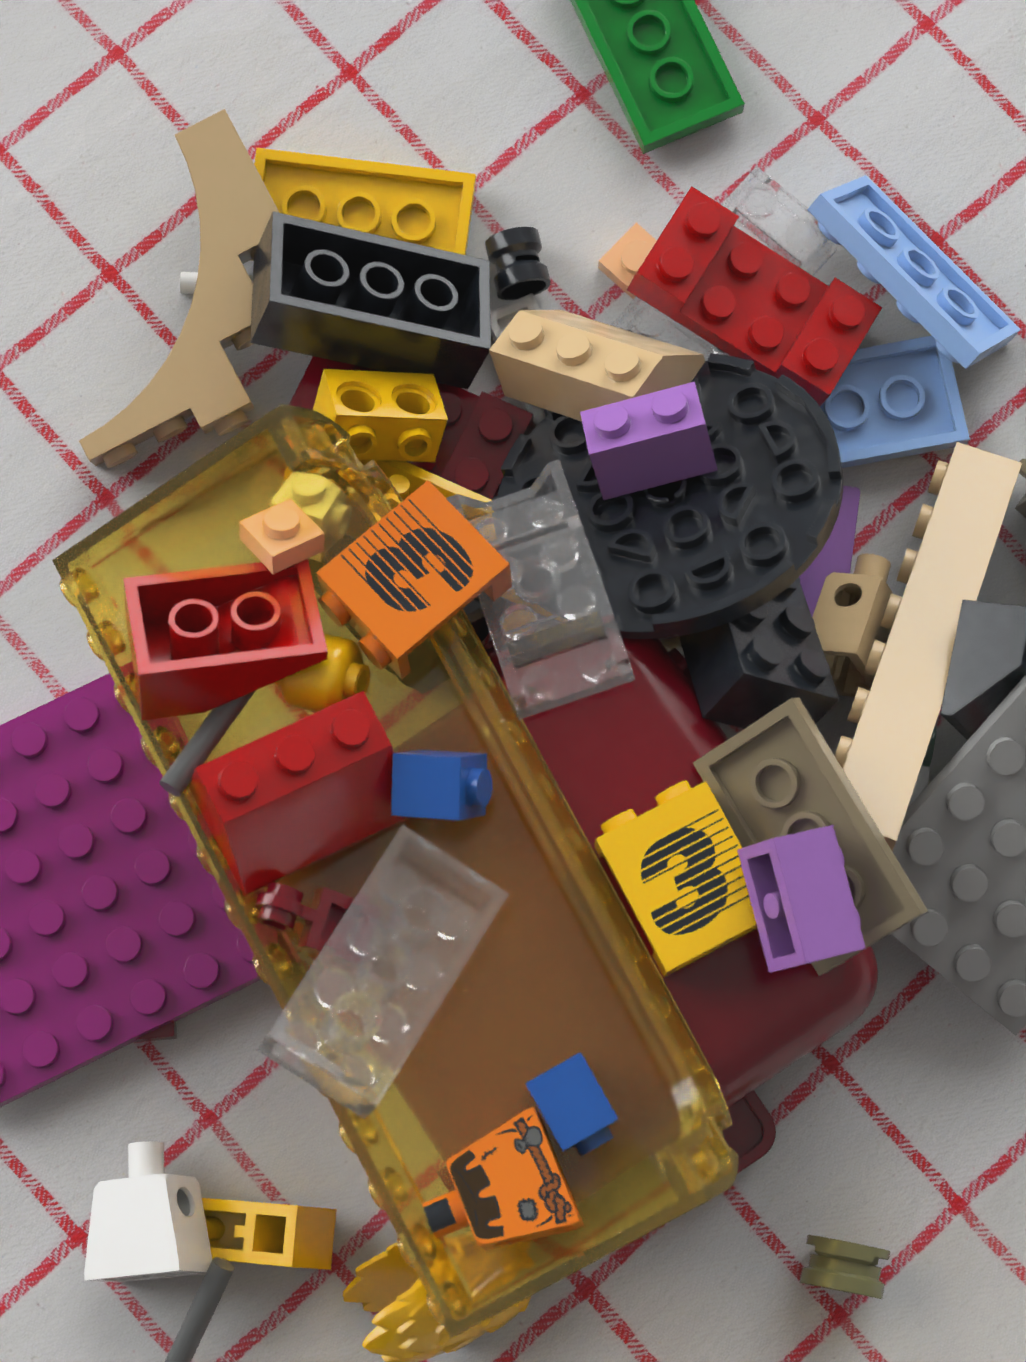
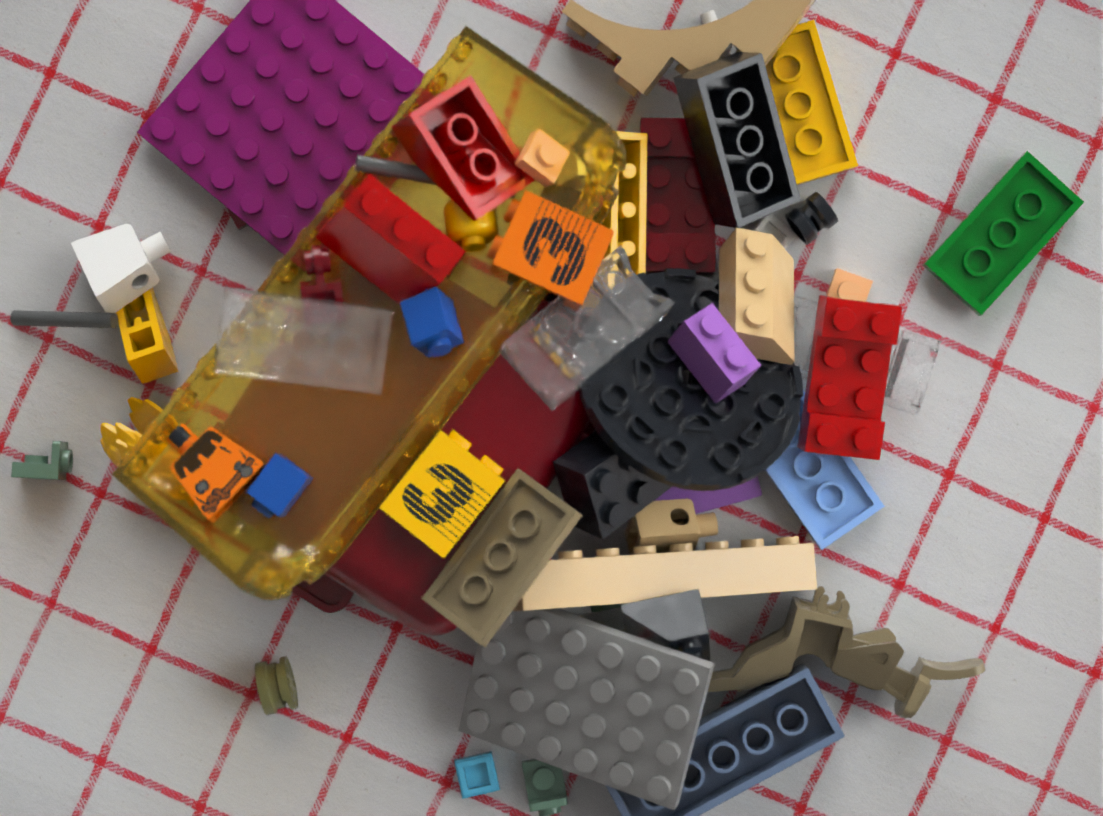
camera: 65 degrees right, 10 degrees up
(385, 412) = (666, 178): yellow brick -> none
(801, 898) = (455, 569): medium lavender brick -> none
(914, 271) = (915, 469): light blue plate -> none

